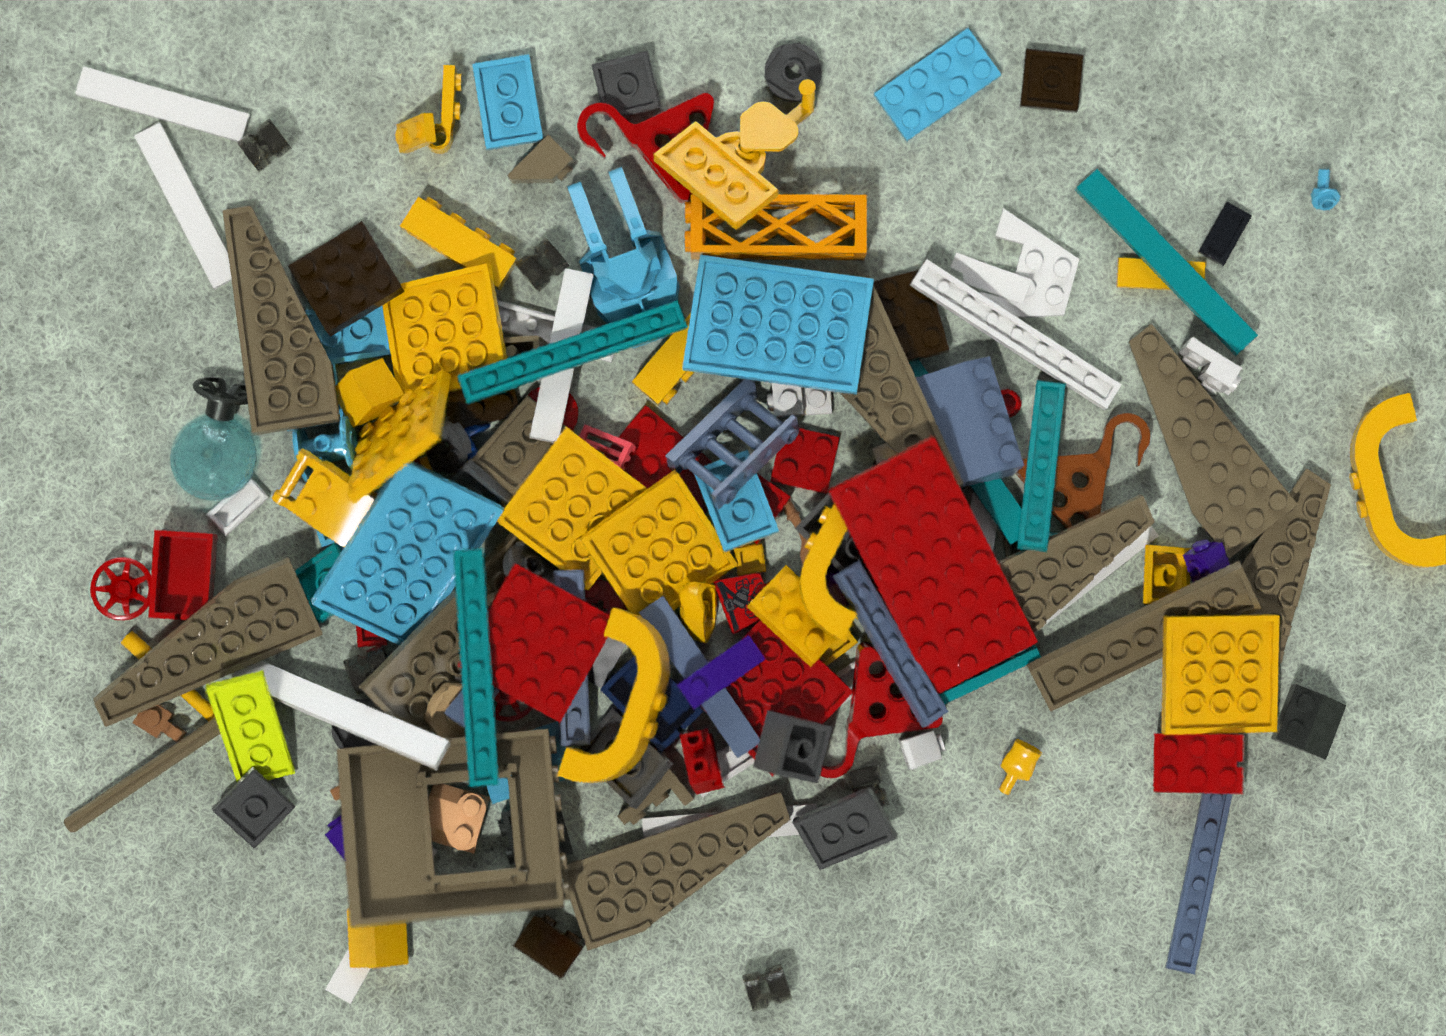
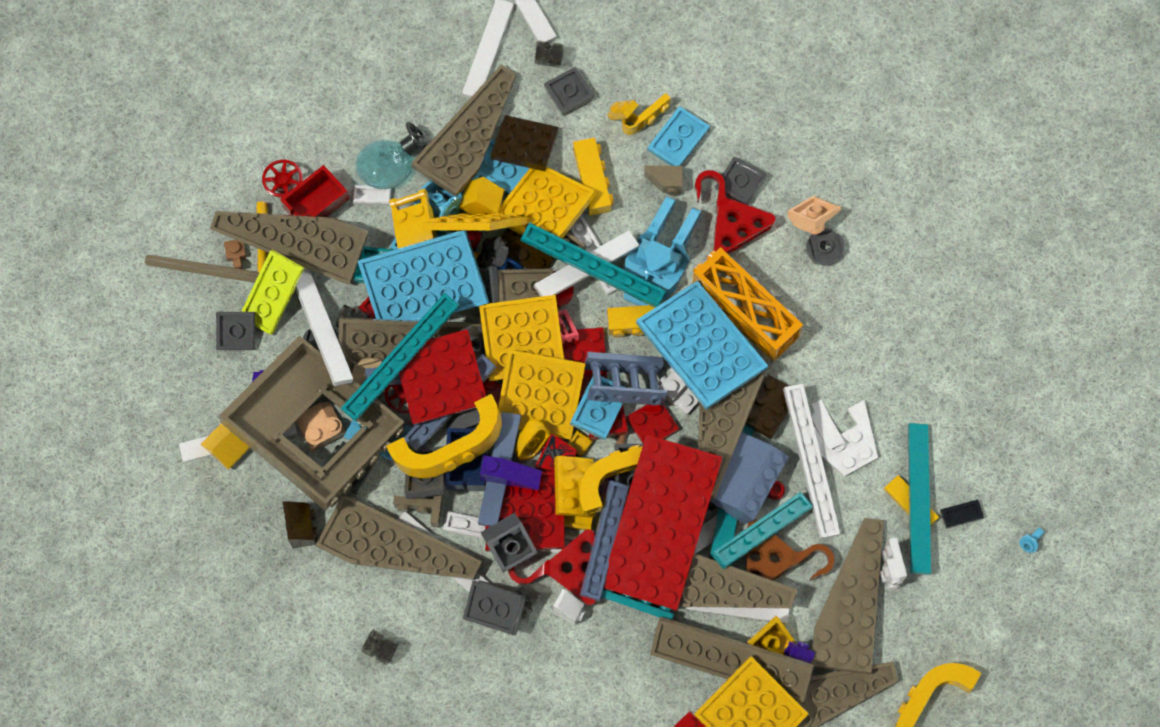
camera: 45 degrees right, 15 degrees down
(329, 166) = (568, 90): none -> dark grey plate
(532, 269) = (613, 216): clear smoke wheel -> none
(702, 761) = (459, 509): red hips -> none
(729, 168) = (748, 254): yellow plate -> none
(746, 48) = (812, 214): none -> light nougat slope
(937, 84) = (888, 316): medium azure plate -> none
(1018, 764) = (608, 663): yellow piece -> none
(1051, 80) = (946, 364): dark brown plate -> none

